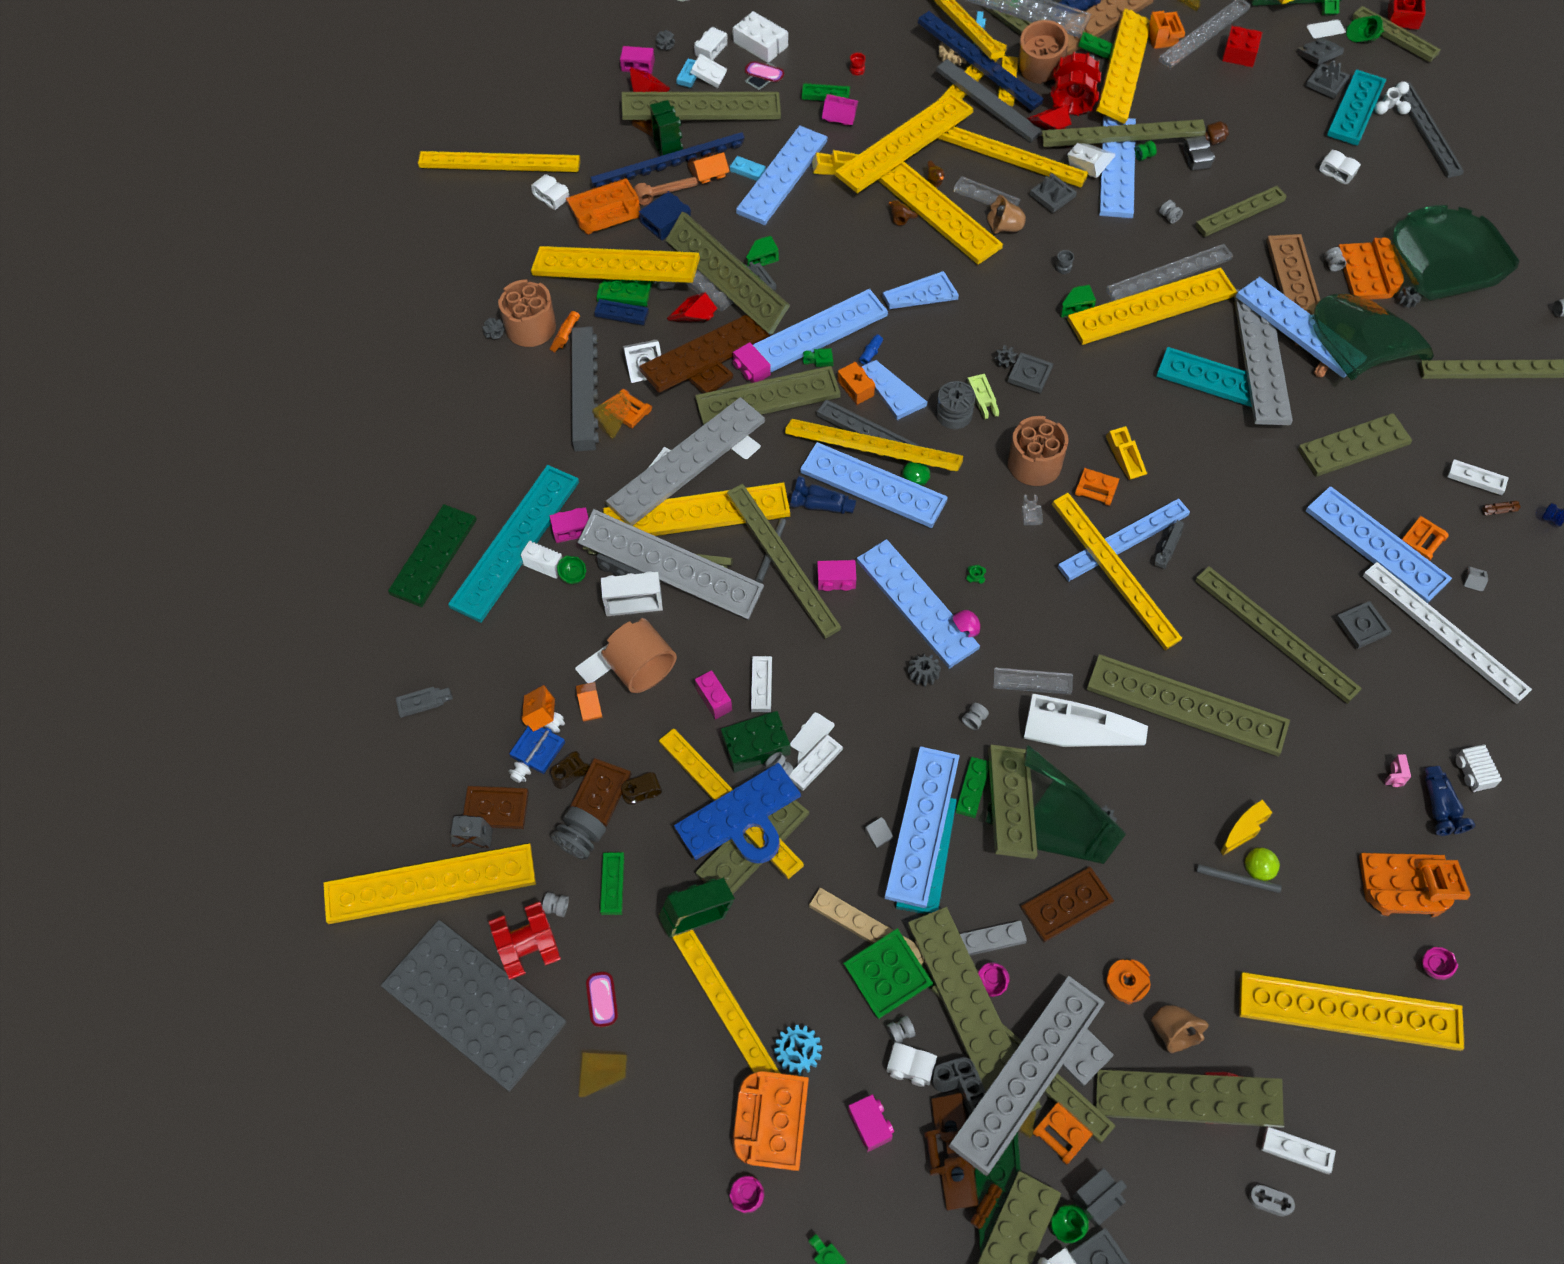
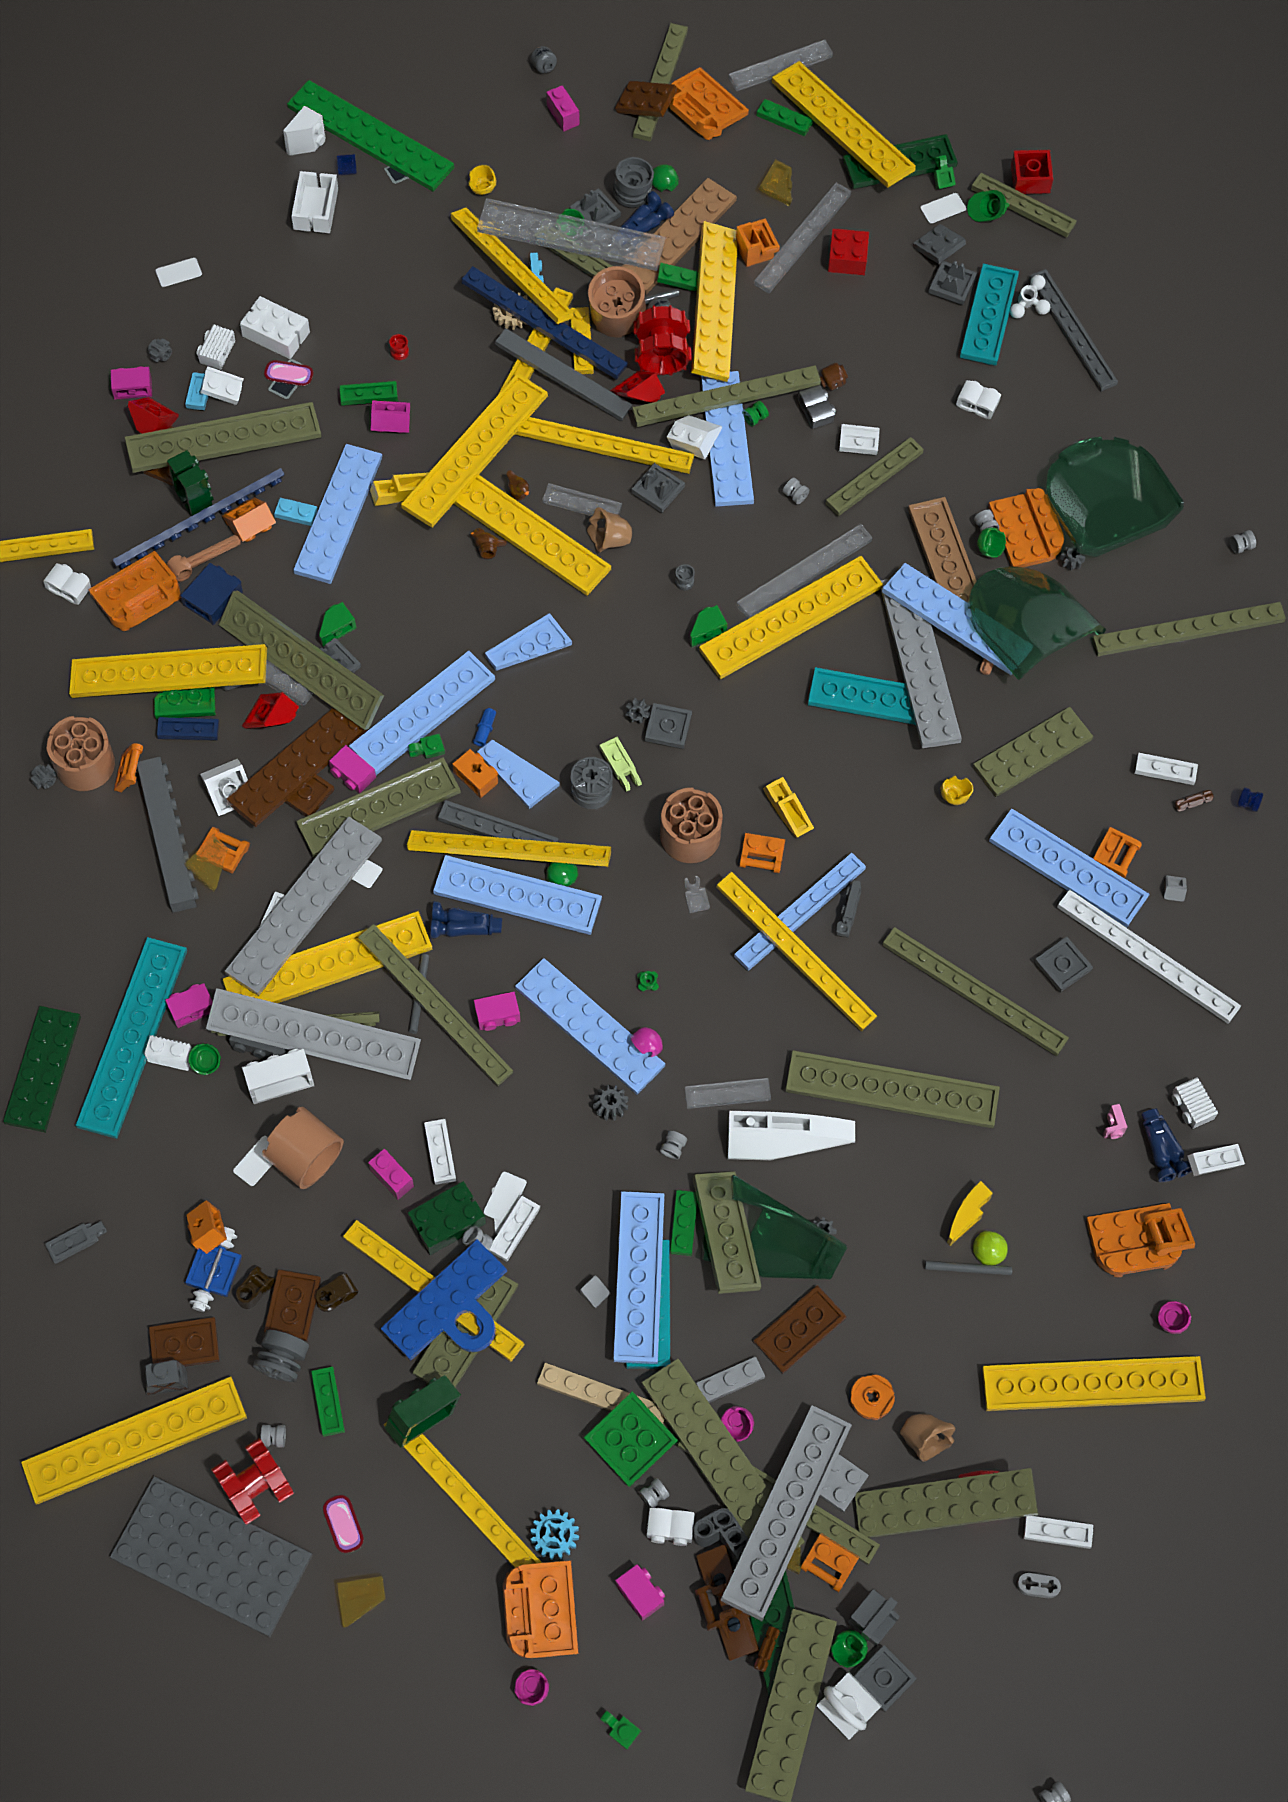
camera: 15 degrees left, 5 degrees up
(589, 701) = (257, 1206): orange slope -> none
(1231, 182) = (859, 439): none -> white plate
(1281, 464) = (956, 790): none -> yellow hair
(1337, 273) = (991, 542): none -> green hair
(1495, 822) = (1216, 1159): none -> white plate

